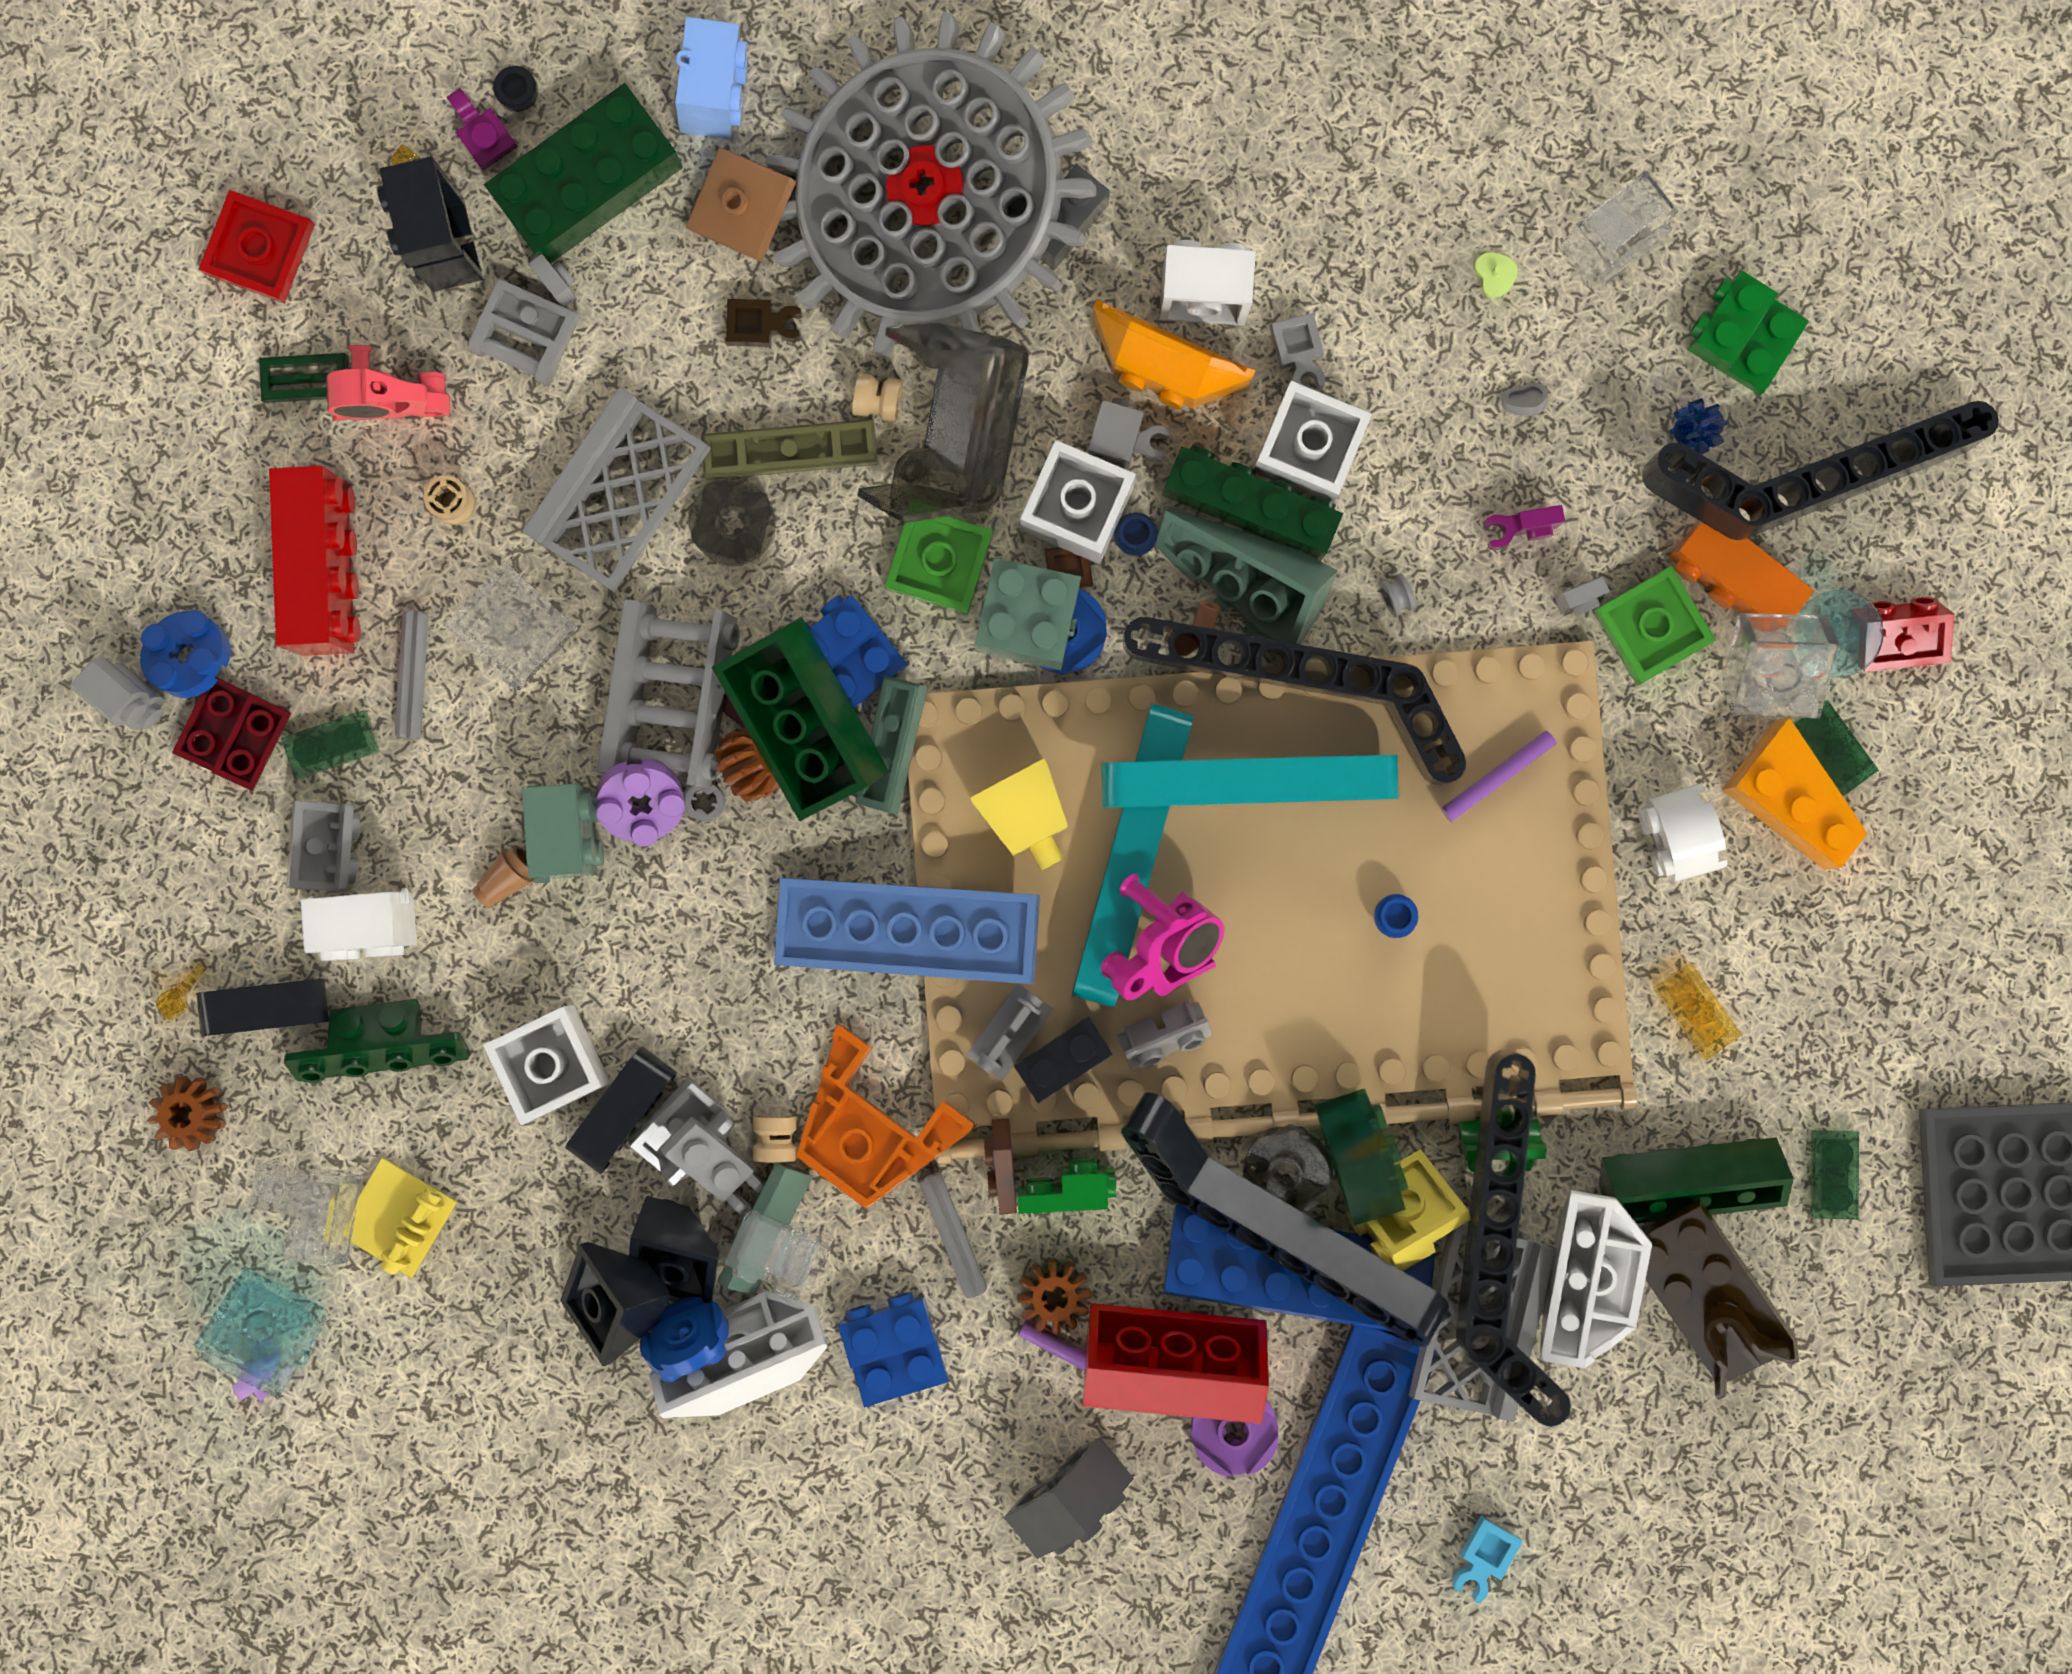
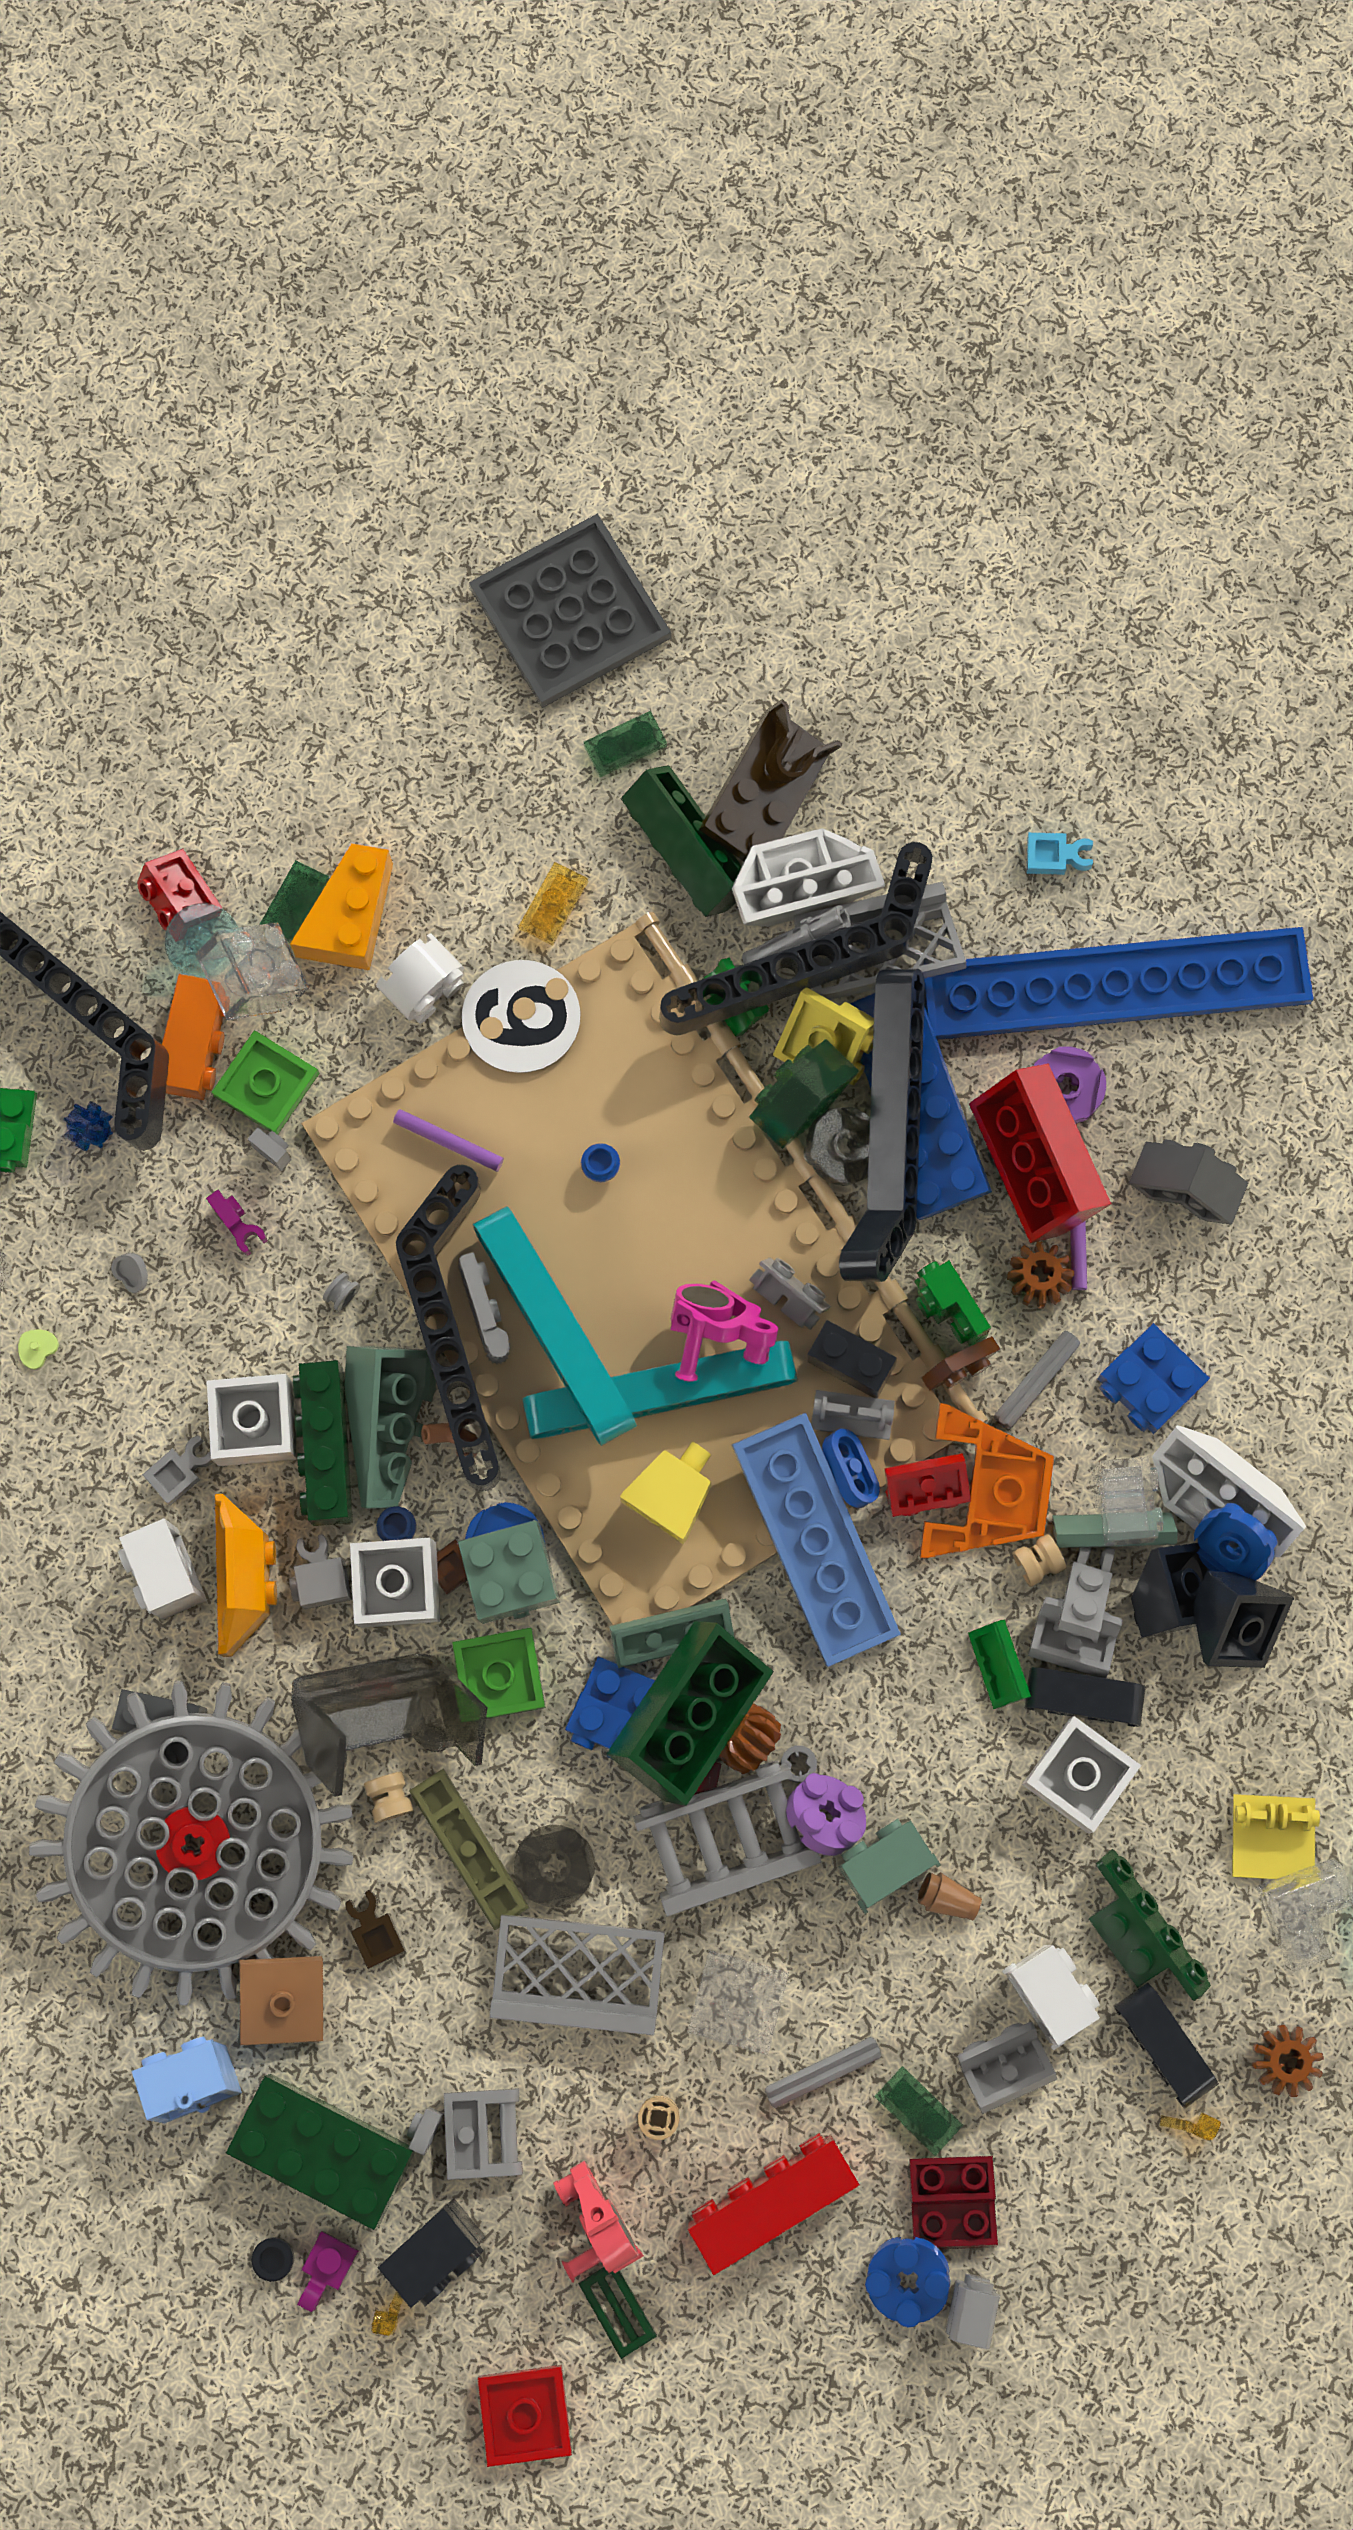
camera: 110 degrees left, 10 degrees down
(695, 1044) = (999, 1664): none -> green plate
(901, 1067) = (927, 1485): none -> red bracket
(956, 1001) = (851, 1468): none -> blue plate
(1302, 723) = (484, 1310): none -> light grey hinge
(1529, 1251) = (809, 930): none -> light grey pin
(1561, 905) = (523, 1043): none -> white sticker

